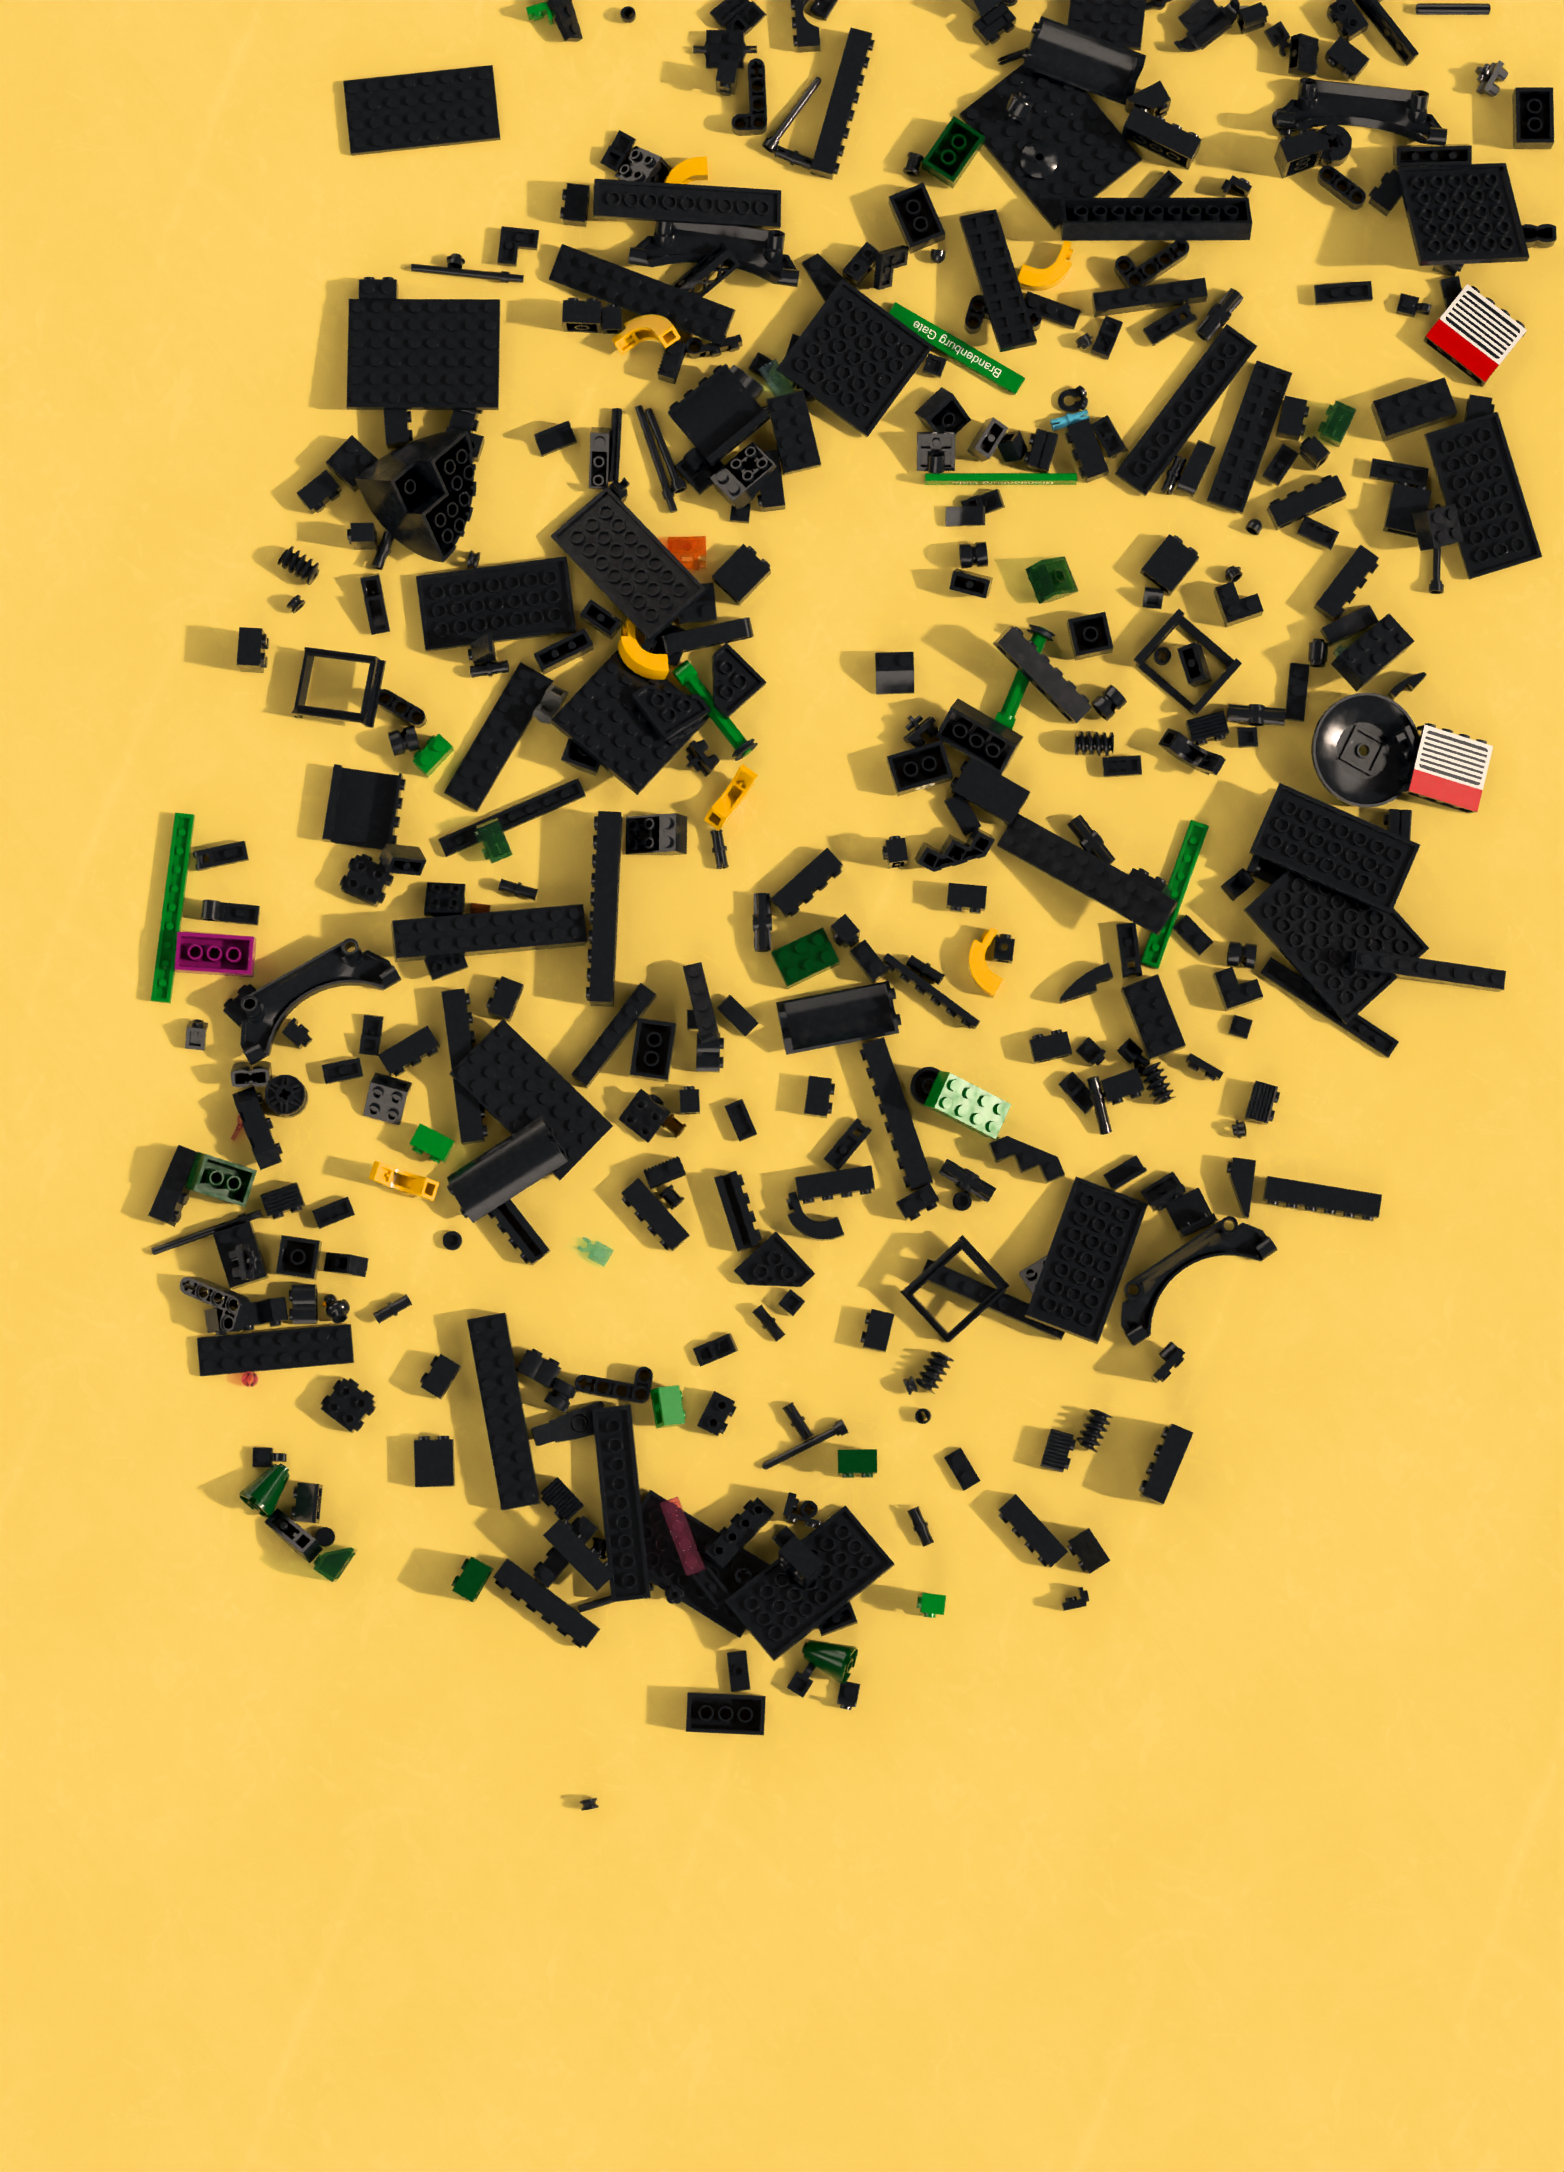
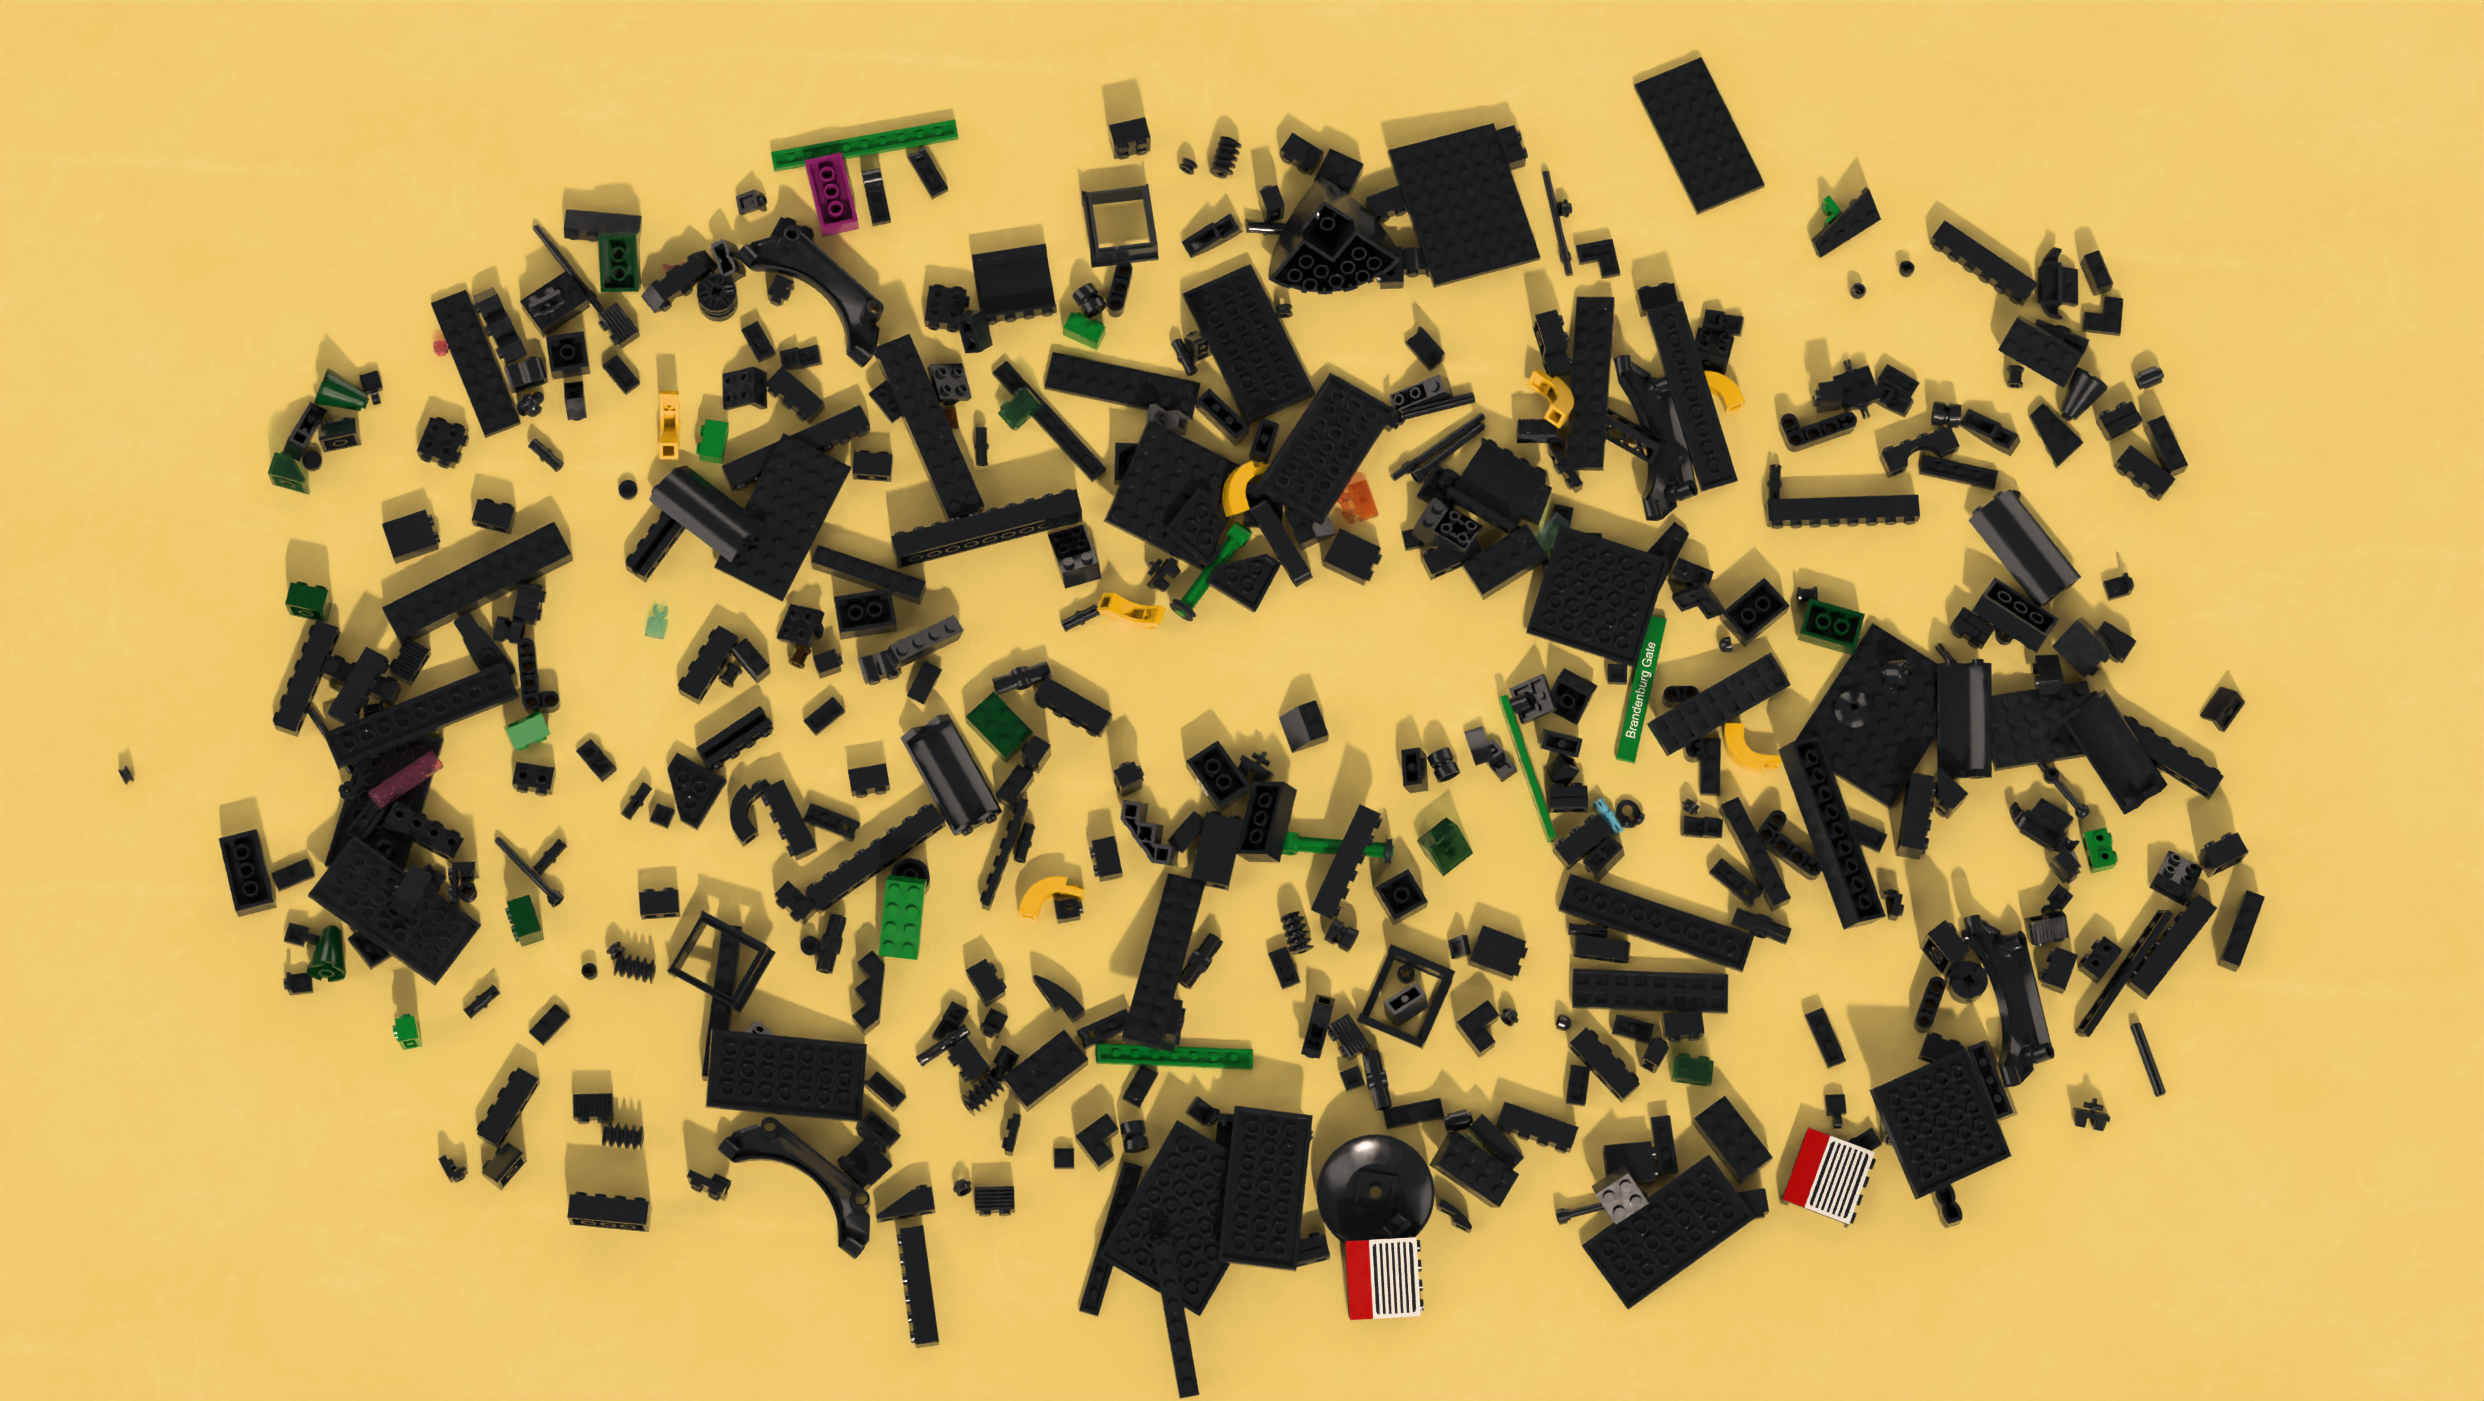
camera: 65 degrees right, 10 degrees down
(233, 1304) = (504, 306): black beam -> none
(772, 142) = (1781, 459): black piece -> none
(1533, 118) = (2064, 1167): black brick -> none

